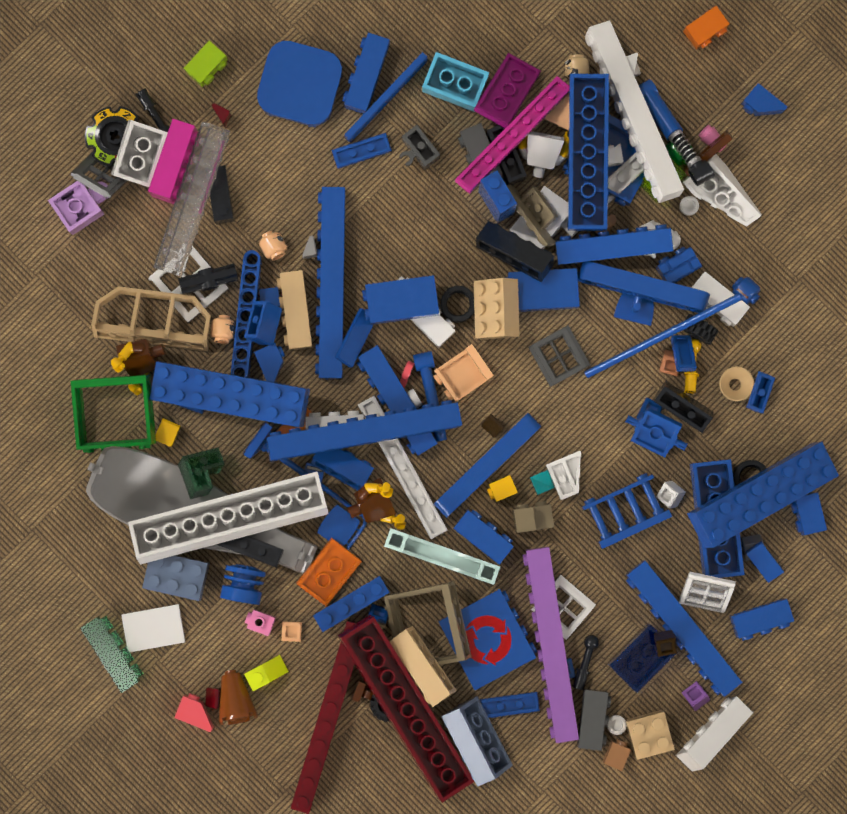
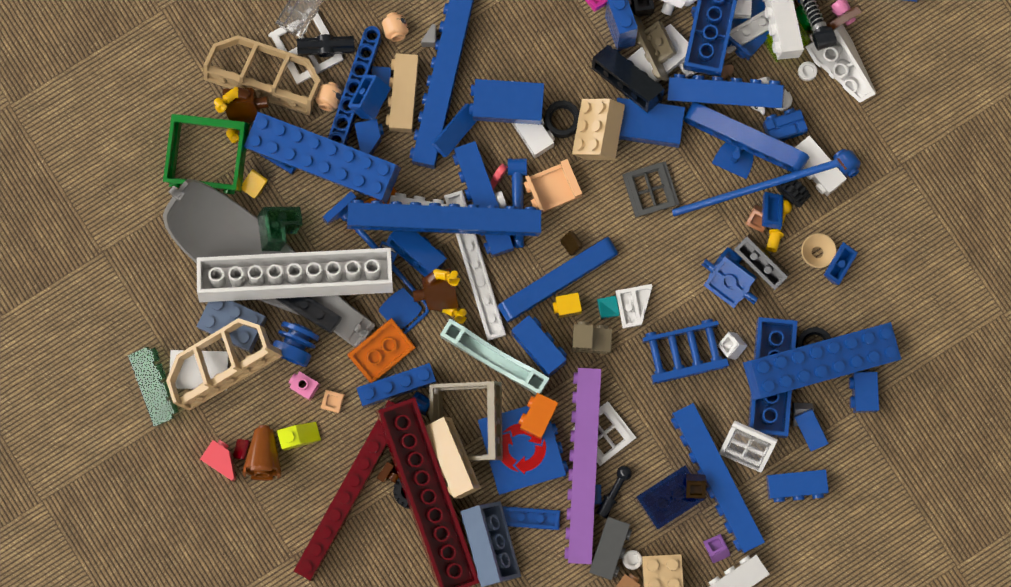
camera: 20 degrees right, 5 degrees down
(180, 636) = (226, 379): none -> tan plate
(497, 606) = (538, 415): none -> orange brick

